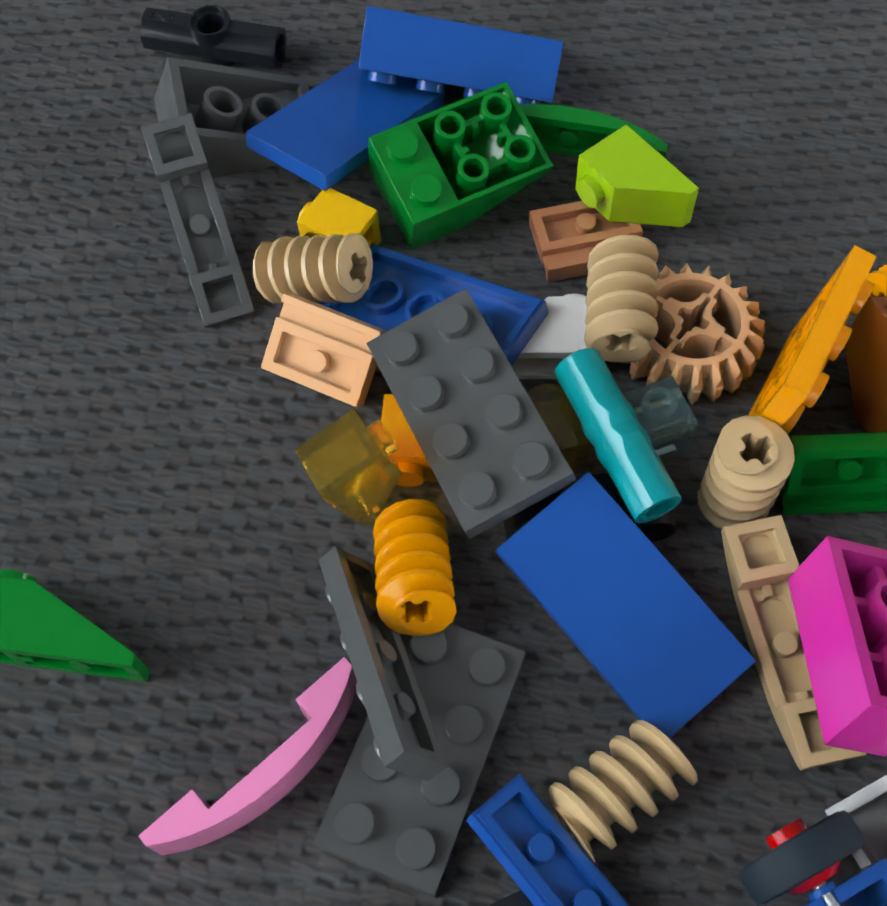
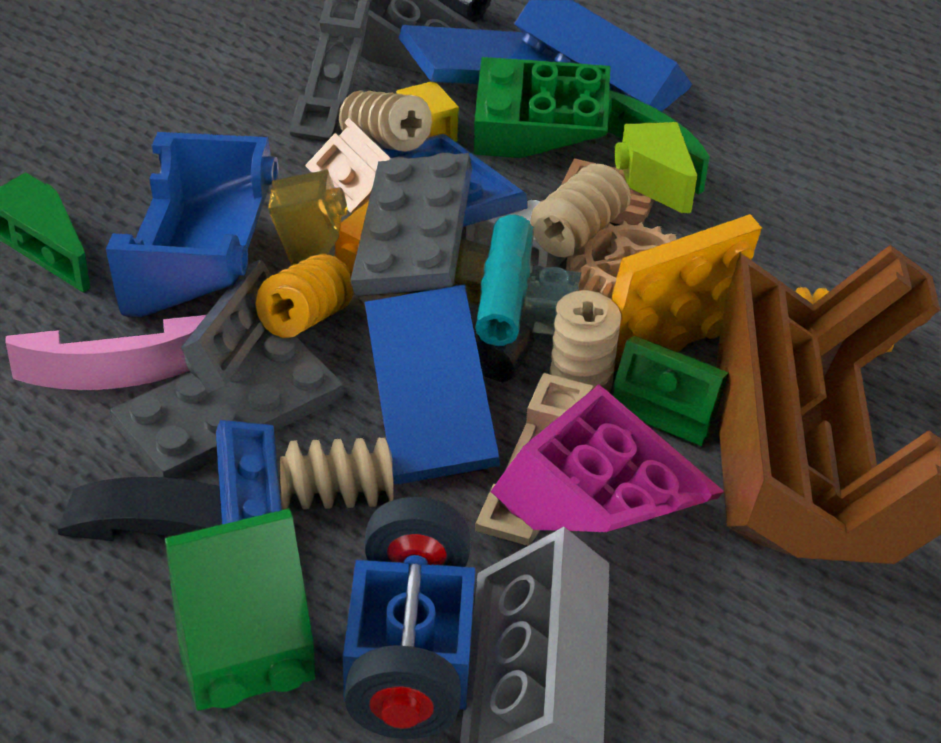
camera: 25 degrees right, 20 degrees down
(232, 542) = (196, 222): none -> blue windscreen

